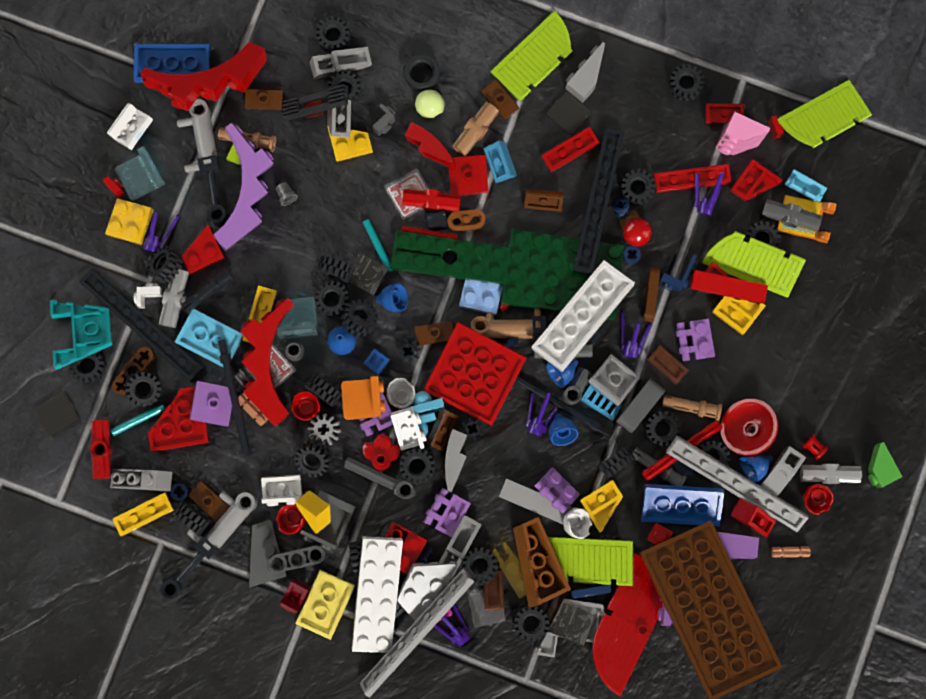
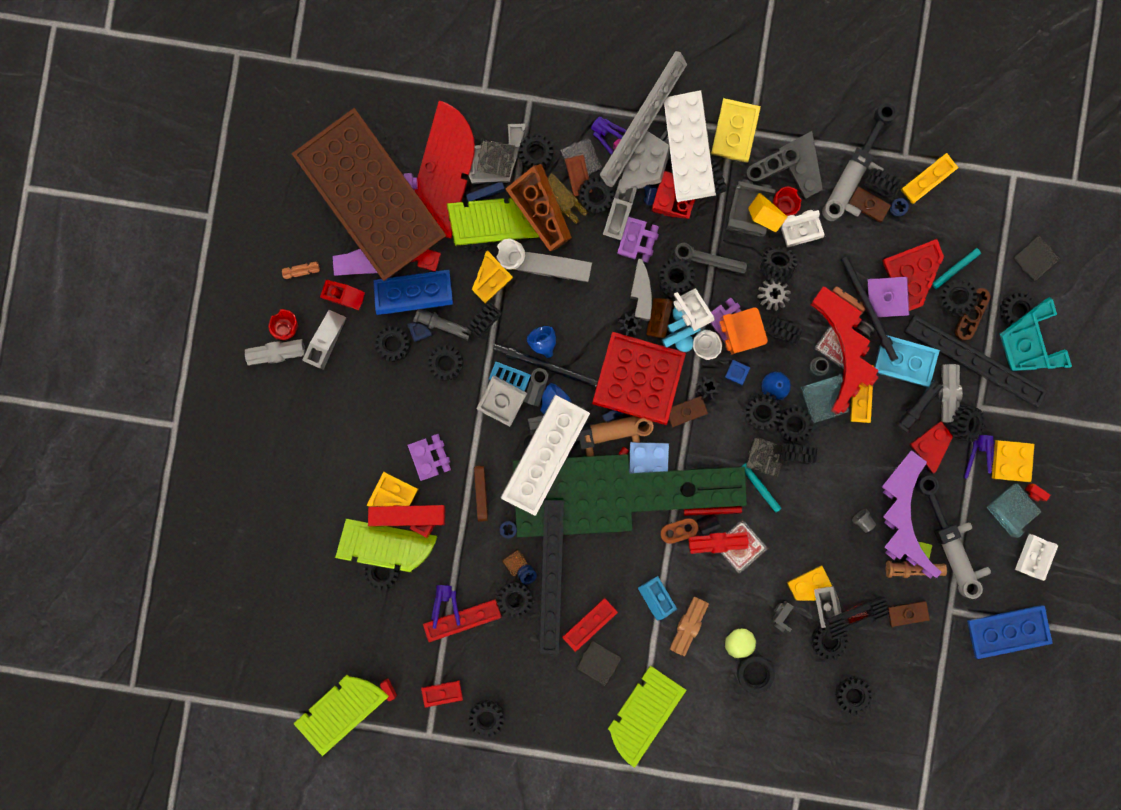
camera: 165 degrees right, 5 degrees up
(102, 462) = (982, 218): red piece -> none
(141, 479) = (939, 210): light grey slope -> none
(150, 290) = (975, 396): white bracket -> none
(211, 83) = (965, 616): red arch -> none
(294, 596) = (767, 130): dark red bracket -> none
(305, 406) = (797, 313): red hair -> none
(347, 60) = (840, 668): light grey slope -> none
(381, 449) = (714, 288): red plate -> none
(393, 298) = (734, 437): blue helmet -> none
(429, 145) = (732, 598): red slope -> none
(469, 175) = (686, 577): red plate -> none
(500, 99) = (670, 662): reddish brown plate -> none
(536, 425) = (568, 341): dark purple plant -> none
(543, 200) = (606, 566): reddish brown plate -> none
(557, 490) = (533, 284): medium lavender plate -> none
(584, 80) = (589, 700): light grey slope -> none
(631, 348) = (490, 436): dark purple plant -> none
(637, 232) = (507, 553): red hair -> none
(640, 405) = (471, 381): dark grey beam -> none
(667, 364) = (452, 427): copper tile -> none
(671, 283) = (464, 508): dark blue bracket -> none
(695, 440) = (424, 343): red axle -> none
(700, 408) = (410, 390): medium nougat pin -> none
(737, 483) = (364, 323): light grey tile -> none
(741, 135) = (423, 671): bright pink slope -> none
(741, 419) = (372, 384): red dish -> none
(754, 181) = (399, 629): red wing -> none
(755, 466) = (348, 345): blue helmet -> none
(792, 215) = (356, 601): dark grey piece -> none
(806, 186) = (347, 635): medium azure hinge -> none
(810, 206) = (344, 602): flag -> none
(818, 453) = (294, 375): red bush -> none
(882, 467) = (226, 368): bright green slope -> none

